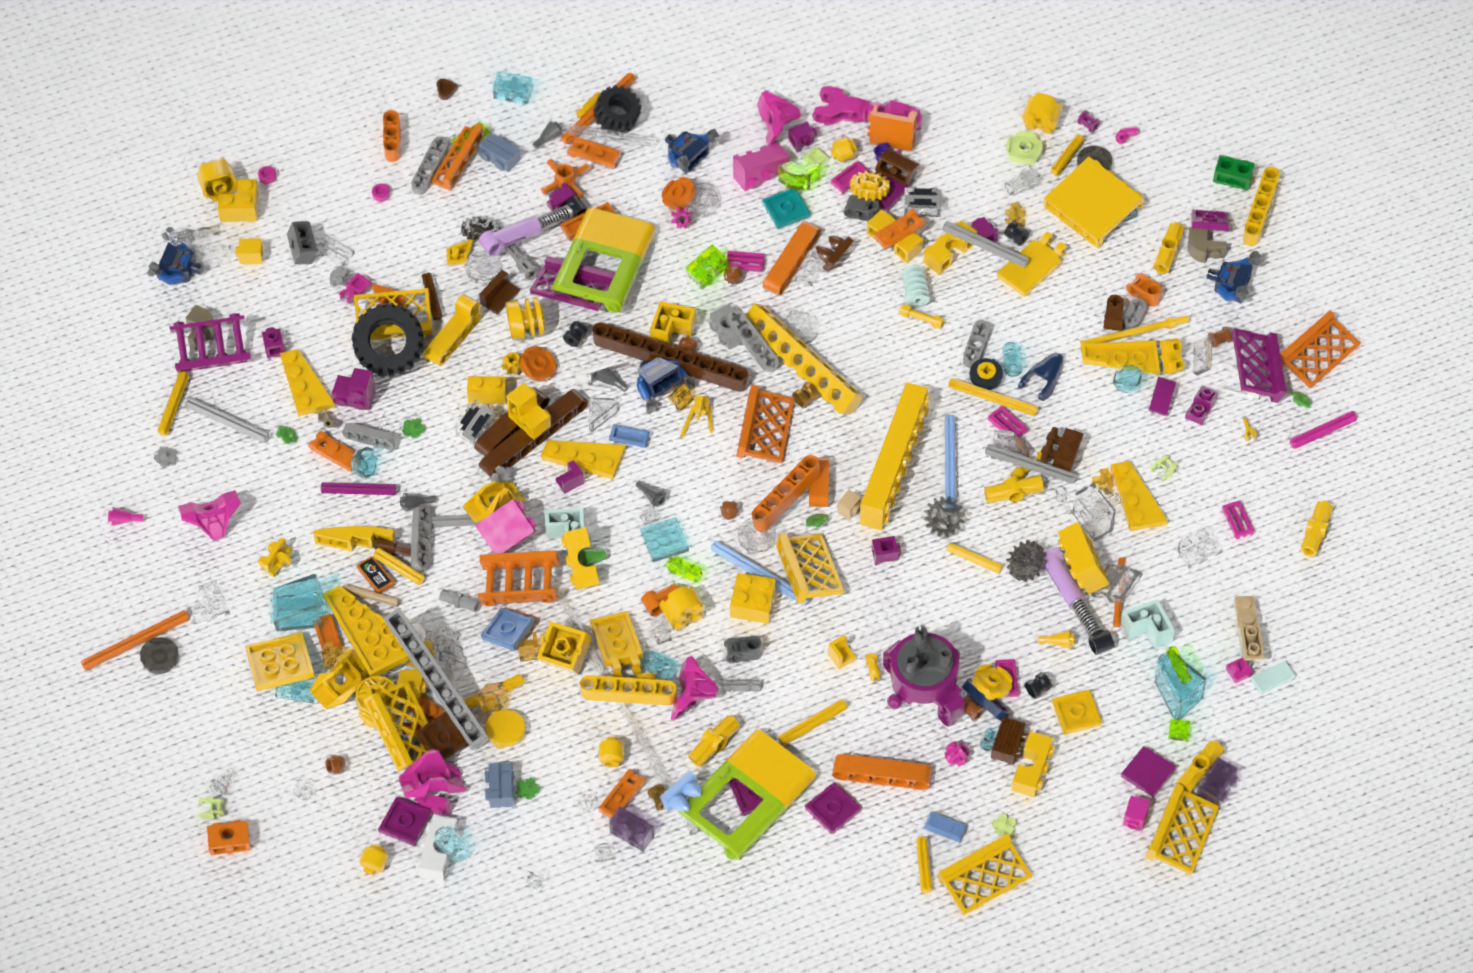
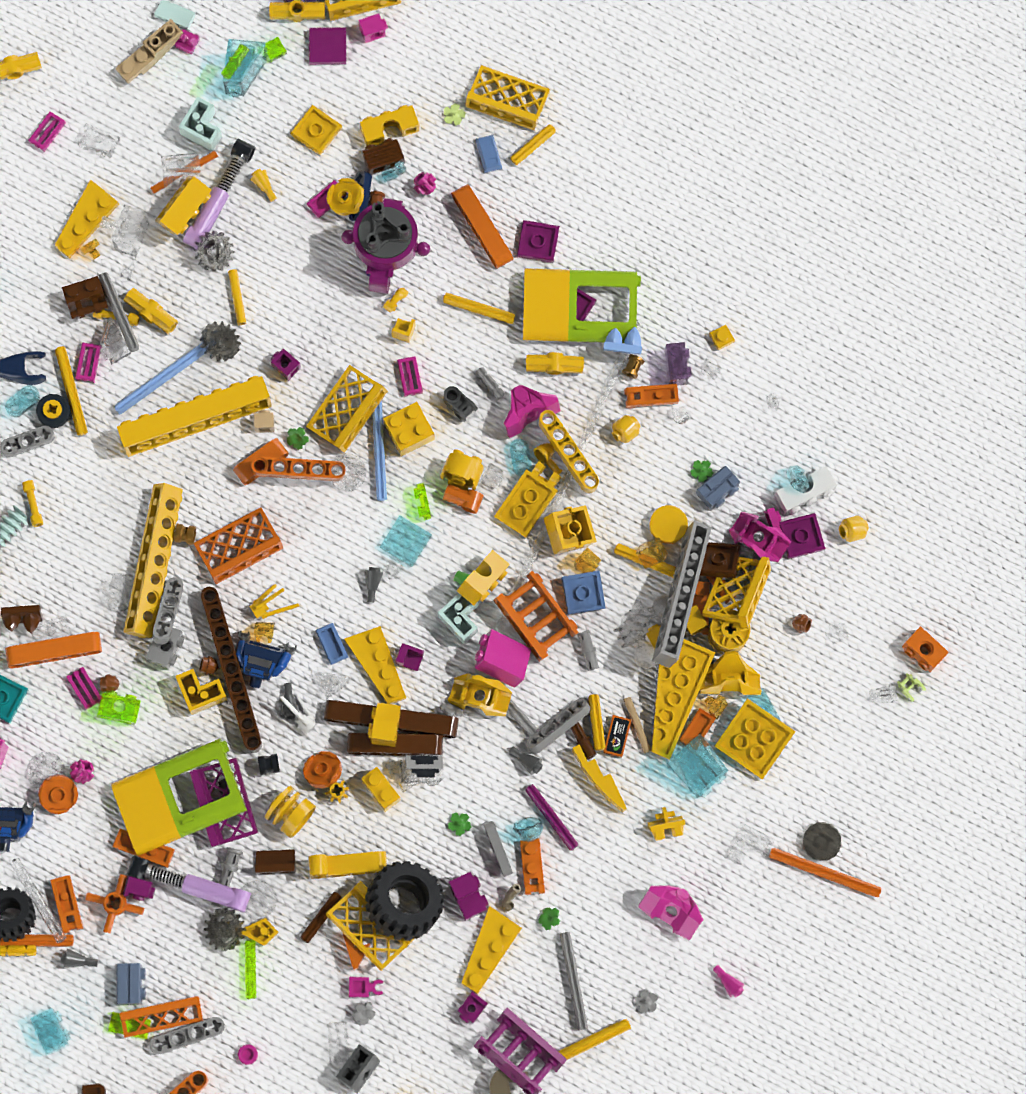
camera: 135 degrees left, 20 degrees up
(437, 230) = (250, 969): none -> clear neon green axle
(625, 886) = (722, 337): none -> yellow plate
(729, 509) = (340, 510): dark orange plate -> none
(796, 636) = (412, 391): none -> dark pink tile
(1038, 685) = (317, 169): black wheel -> none
(1160, 462) = (39, 210): yellowish green piece -> none

